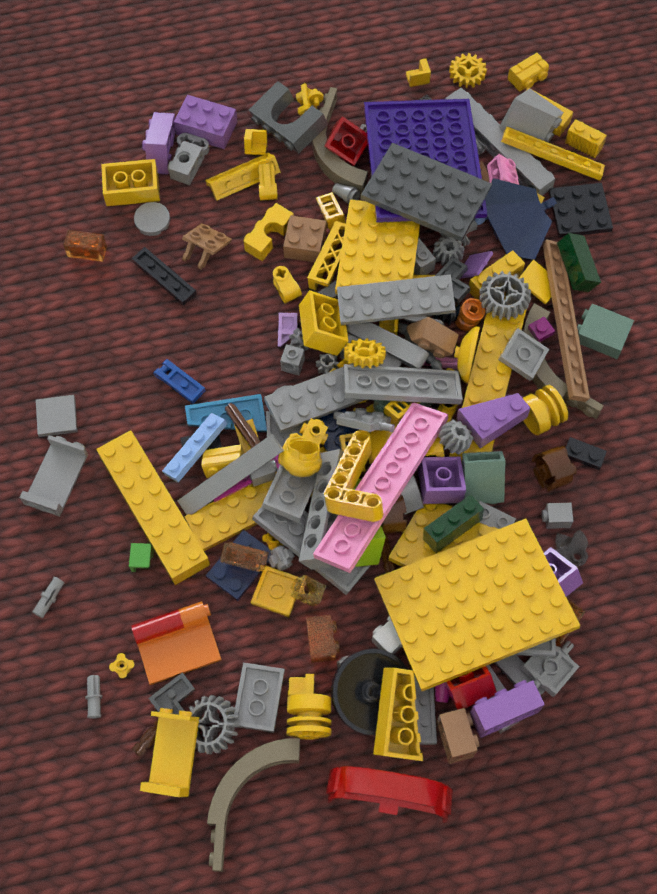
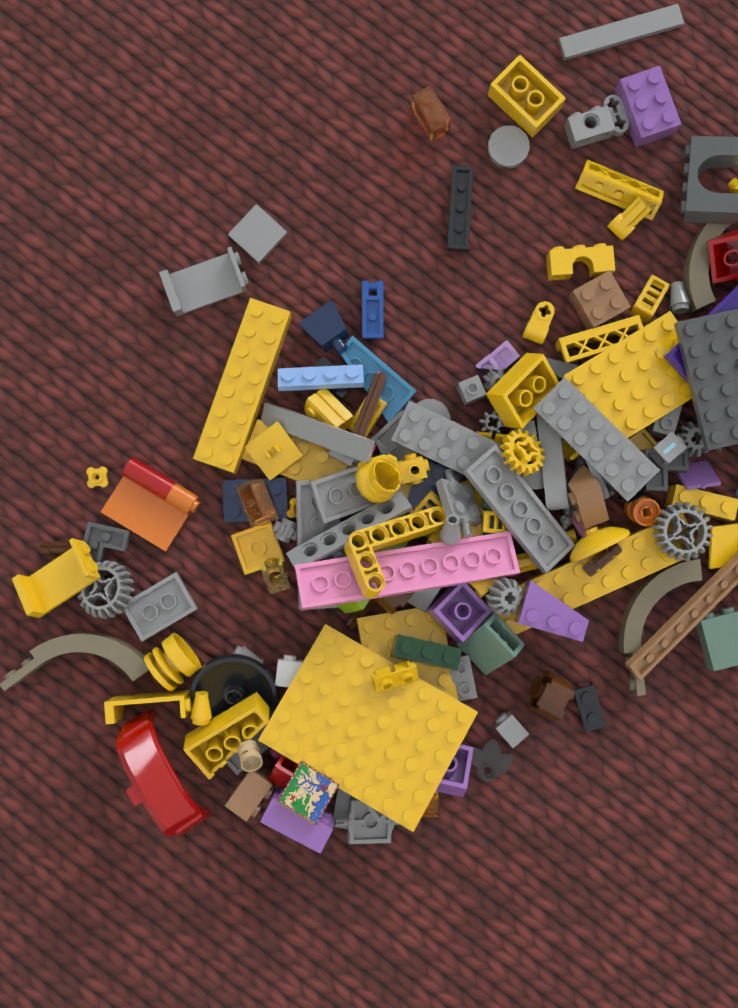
camera: 45 degrees right, 20 degrees up
(48, 597) = (102, 369): light grey pin -> none
(93, 696) = (56, 477): light grey axle -> none
(140, 556) = (192, 414): bright green panel -> none
(143, 104) = (621, 32): none -> light grey tile
(160, 139) = (592, 81): medium lavender wedge -> none
(164, 419) = (326, 328): none -> dark blue torso
(206, 238) = (526, 215): medium nougat plate -> none
(217, 519) = (273, 450): none -> yellow piece
(255, 142) = (663, 171): yellow panel -> none
(301, 685) = (194, 633): yellow panel -> none
(303, 787) = (115, 706): none -> yellow panel
(321, 638) = (245, 618): clear orange brick -> none
(364, 722) = (201, 709): none -> yellow cone
(379, 435) = (450, 532): none -> light grey cone
(428, 706) = (250, 756): none -> tan wheel
(441, 264) = (668, 450): none -> light grey brick
(454, 551) = (404, 673): none -> yellow hinge
(482, 358) = (602, 559): none -> reddish brown axle
(491, 677) = (308, 793): none -> tile
(523, 354) = (636, 591): light grey plate -> none
(541, 329) = (677, 586): magenta plate -> none
(546, 409) = (600, 646): yellow wheel -> none

